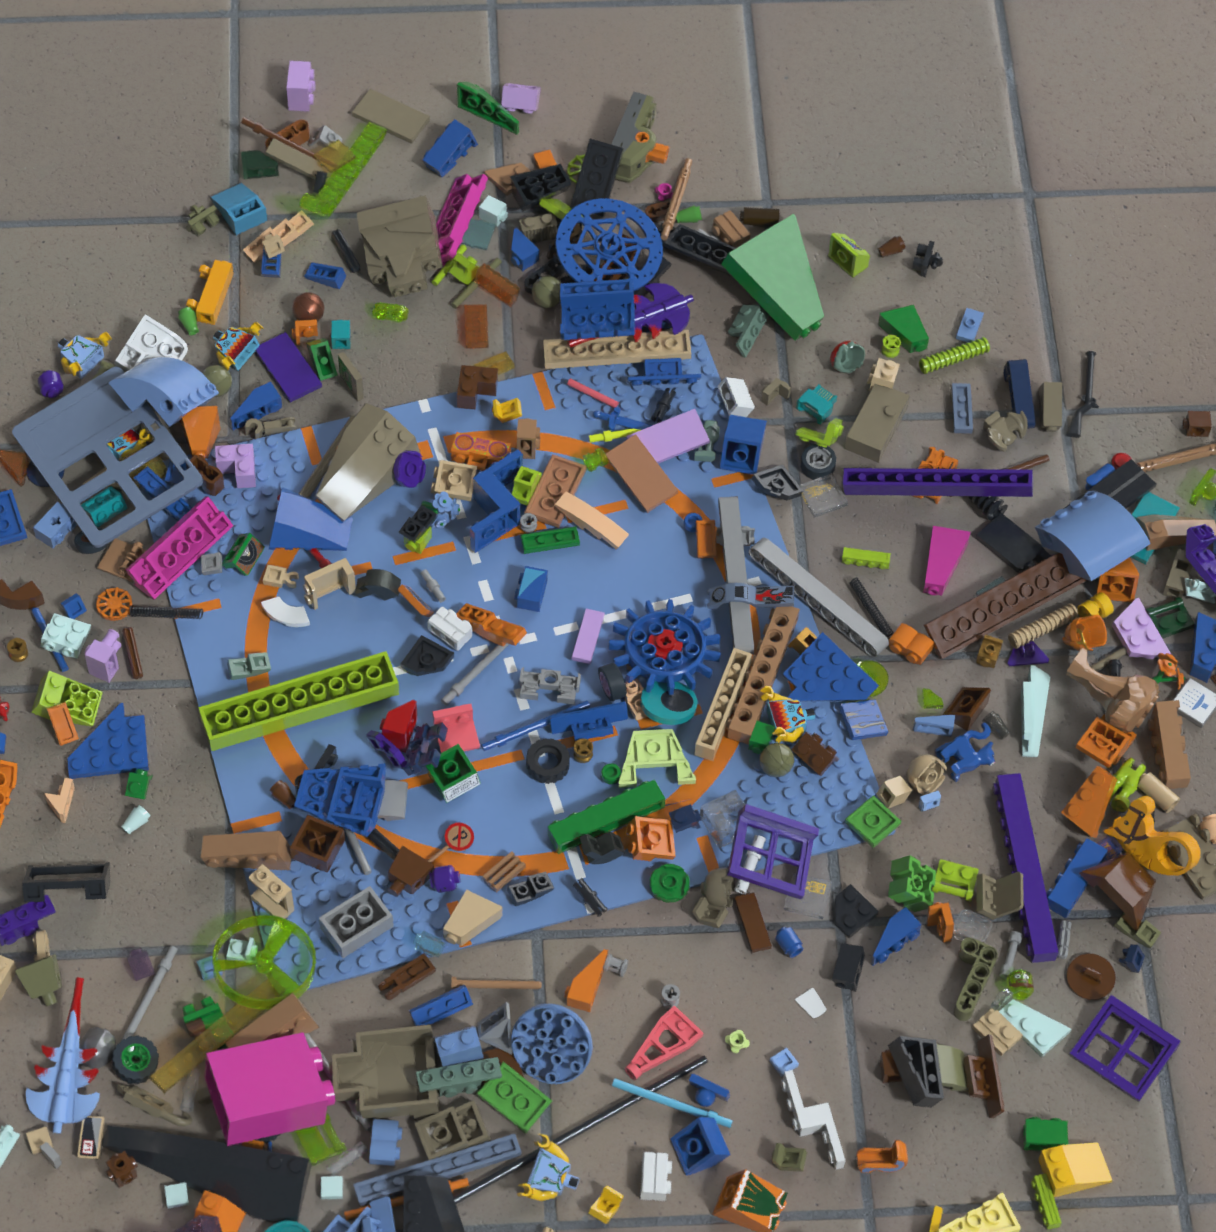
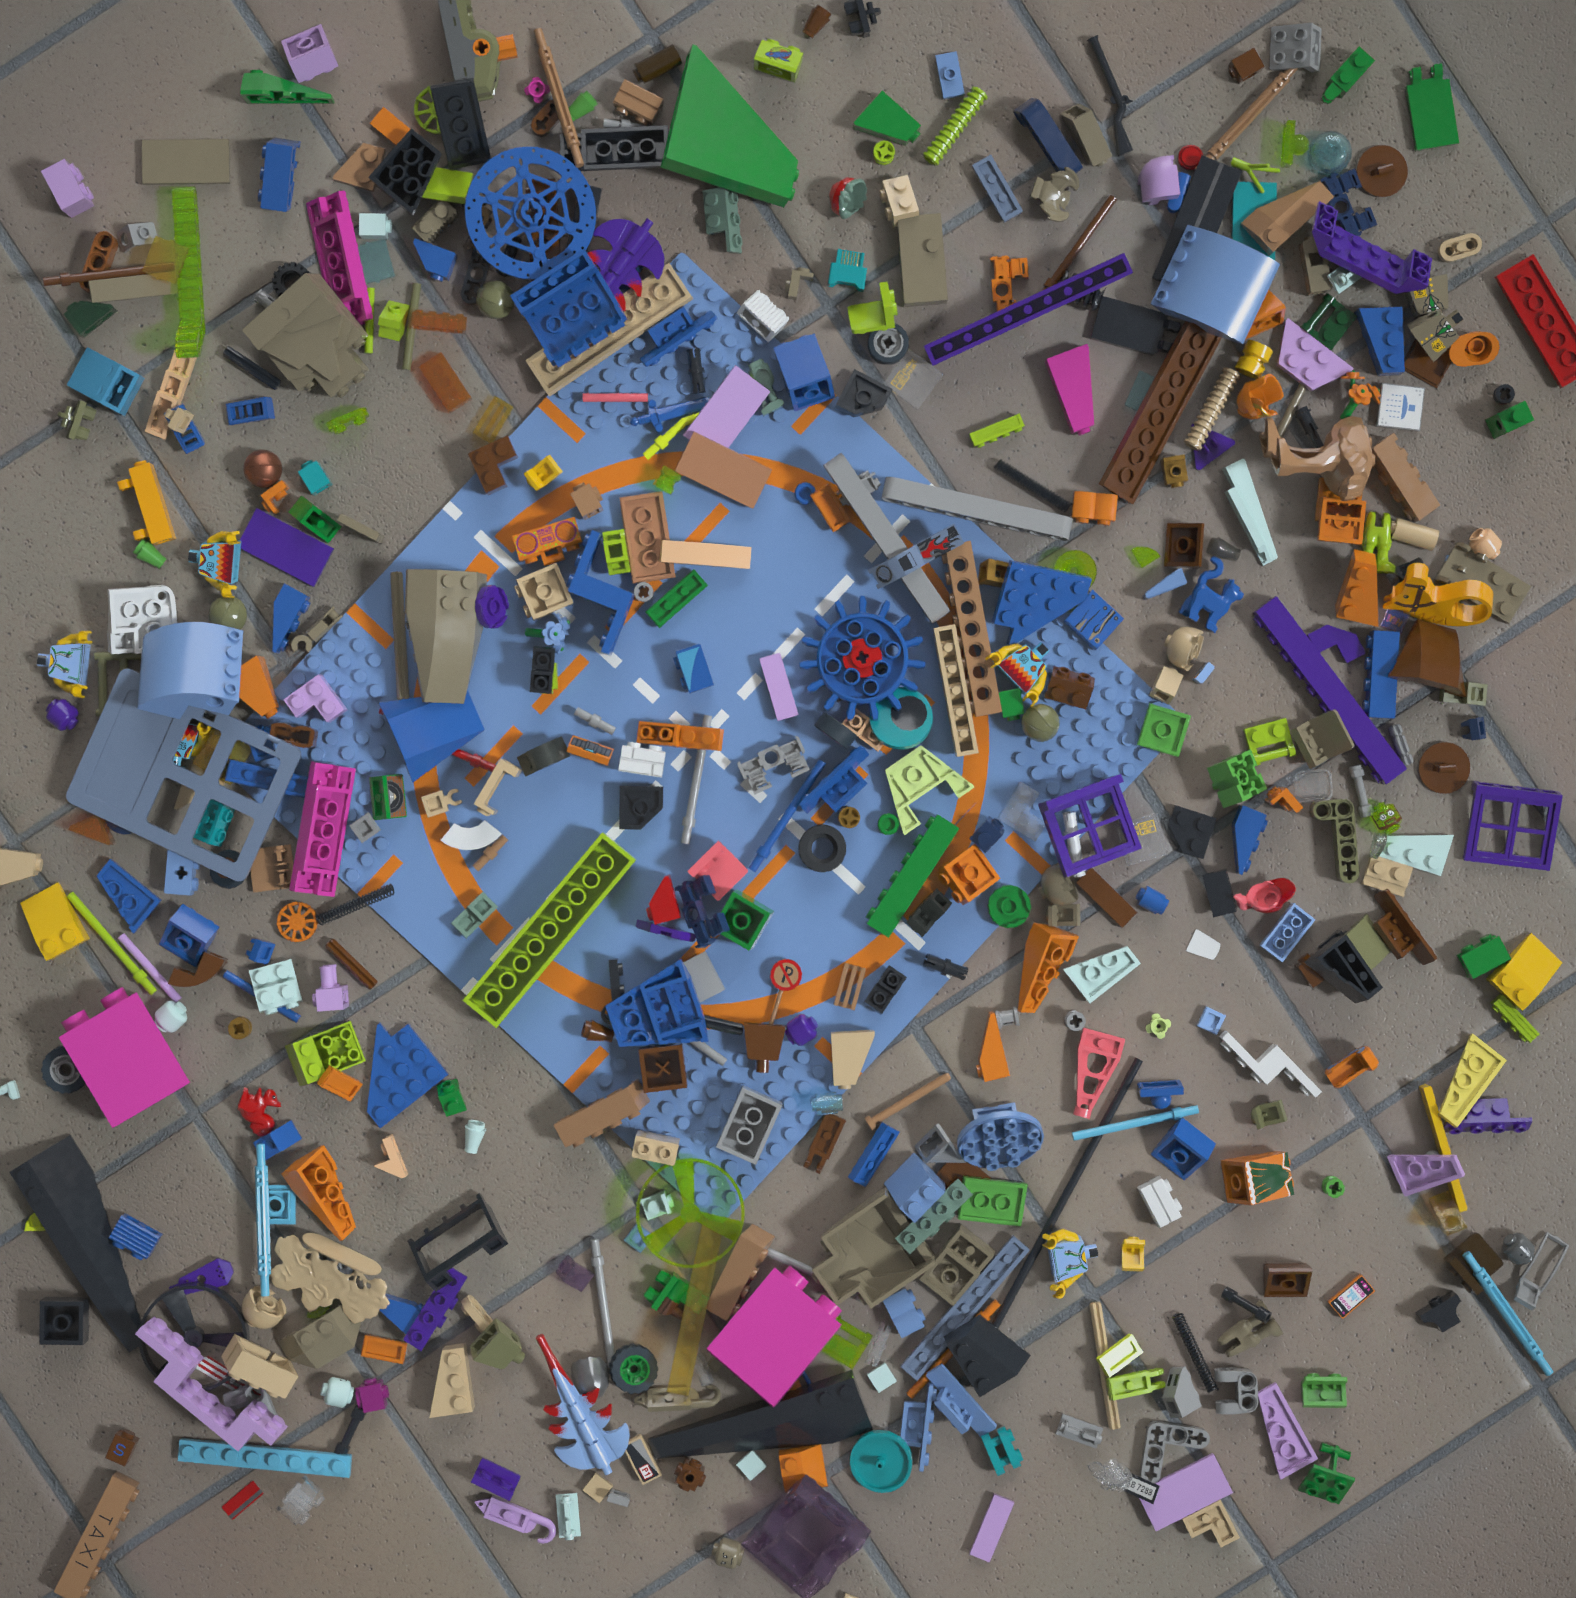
camera: 25 degrees left, 30 degrees up
(28, 565) = (188, 935): none -> blue slope
(292, 630) = (490, 852): none -> medium nougat bar
(320, 181) = (168, 294): black pin -> none
(673, 938) = (1043, 956): none -> orange wedge
(710, 974) = (1101, 972): none -> light aqua wing
(882, 988) = (1267, 896): none -> coral hair
(887, 1026) = (1287, 932): none -> light blue piece
(1059, 842) = (1346, 642): none -> dark purple tile
(1088, 457) = (1159, 180): none -> lavender brick
(1164, 488) = (1249, 167): none -> lime plant

